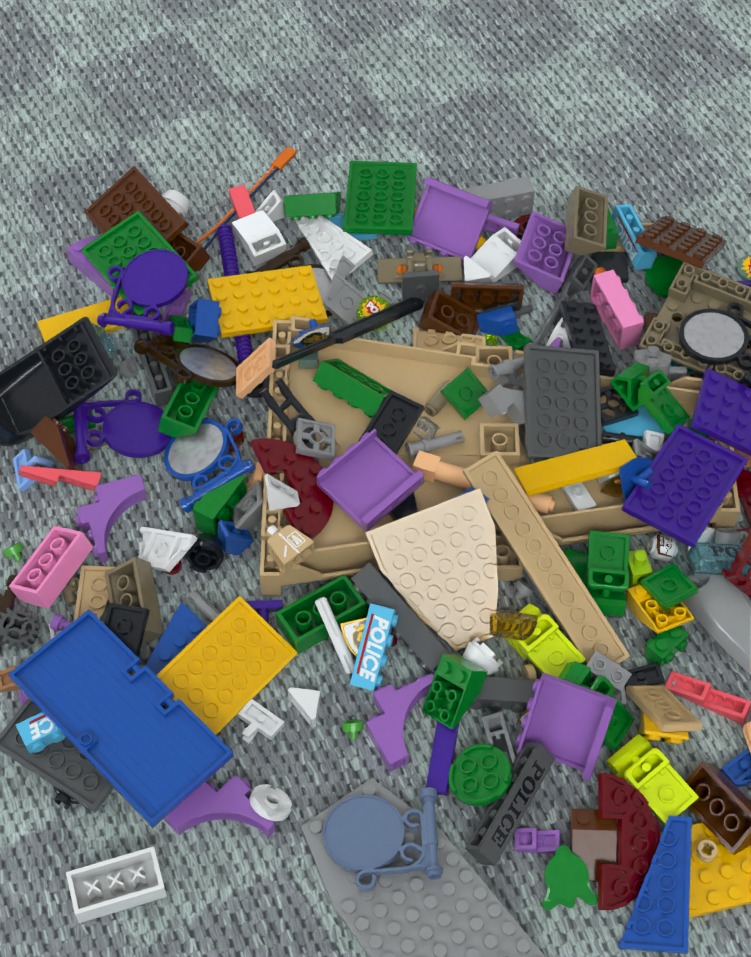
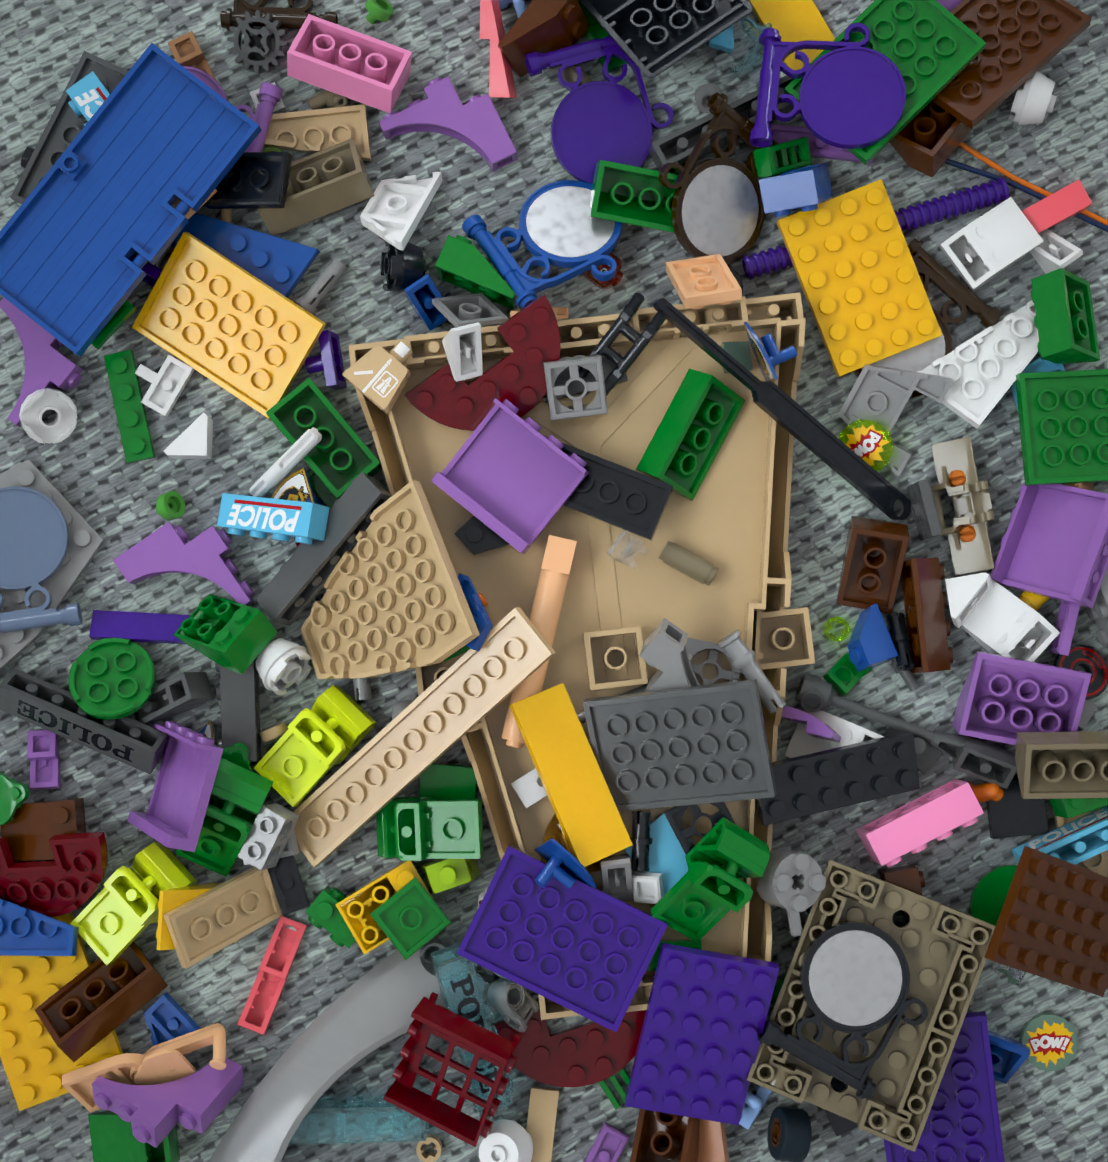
camera: 85 degrees right, 30 degrees up
(272, 750) = (128, 406): none -> green plate
(432, 444) = (597, 550): light grey pin -> none
(436, 341) = (820, 555): tan wing -> none
(464, 393) = (699, 600): green tile -> none
(512, 625) = (321, 703): clear yellow brick -> none
(704, 857) = (40, 985): tan bush -> none

